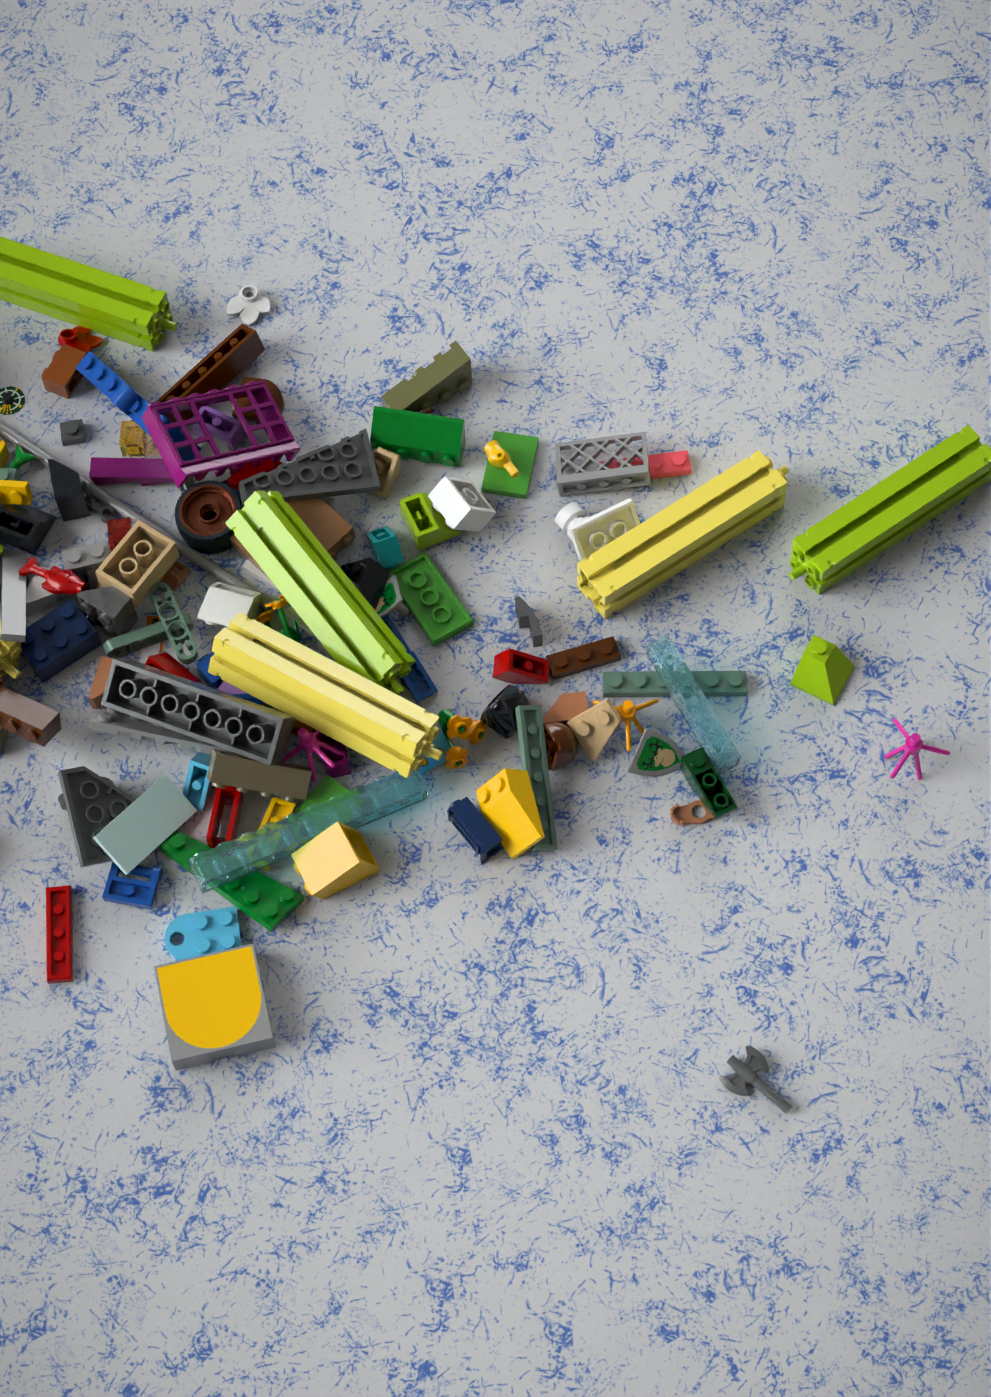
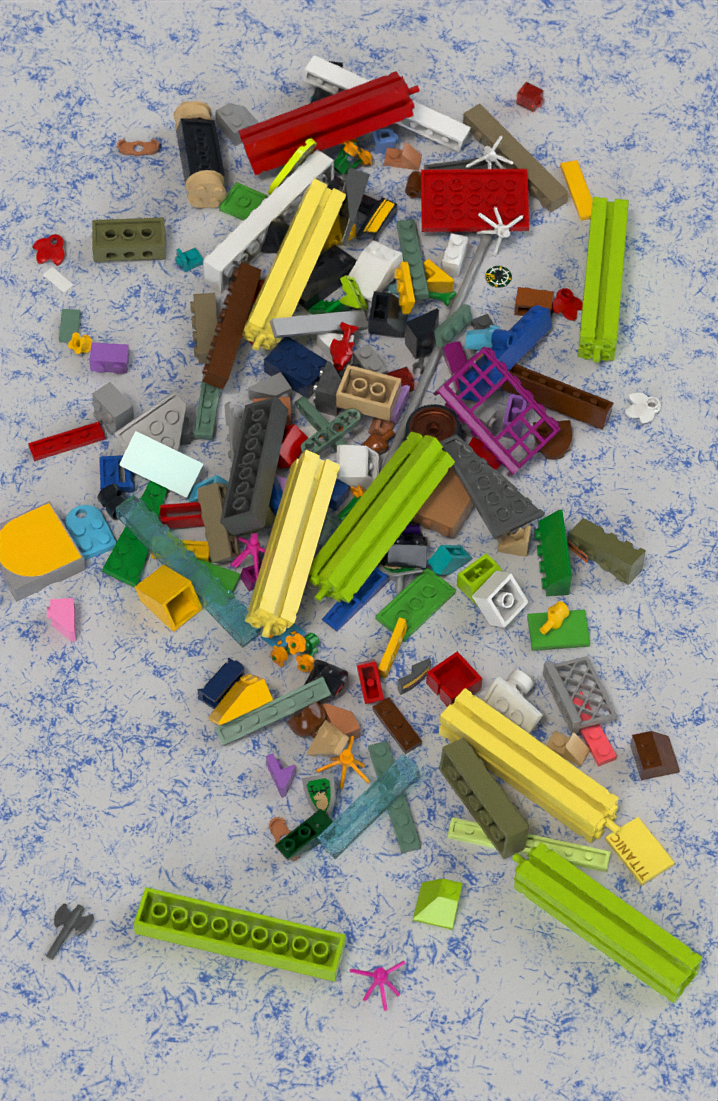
camera: 70 degrees right, 5 degrees down
(42, 862) = (112, 408): none -> light grey brick
(68, 456) = (453, 325): none -> sand green plate
(75, 755) = (206, 411): none -> sand green plate
(79, 676) = (270, 387): none -> light grey slope
(101, 429) = (479, 338): none -> medium azure slope
(176, 893) = (111, 497): none -> black wheel
(197, 582) = (377, 442): none -> dark orange piece
(324, 990) = (63, 616): none -> bright pink slope
(483, 630) = (392, 648): none -> yellow tile
(550, 580) = (452, 677): none -> red piece
(622, 795) = (280, 776): none -> medium lavender slope
(663, 494) = (570, 748): none -> tan slope
(697, 417) = (653, 755): none -> reddish brown slope
(714, 585) = (484, 798): none -> olive brick
(769, 566) = (575, 854): none -> yellowish green tile
(809, 460) = (639, 851): none -> light yellow tile
(815, 886) = (240, 934): none -> lime brick

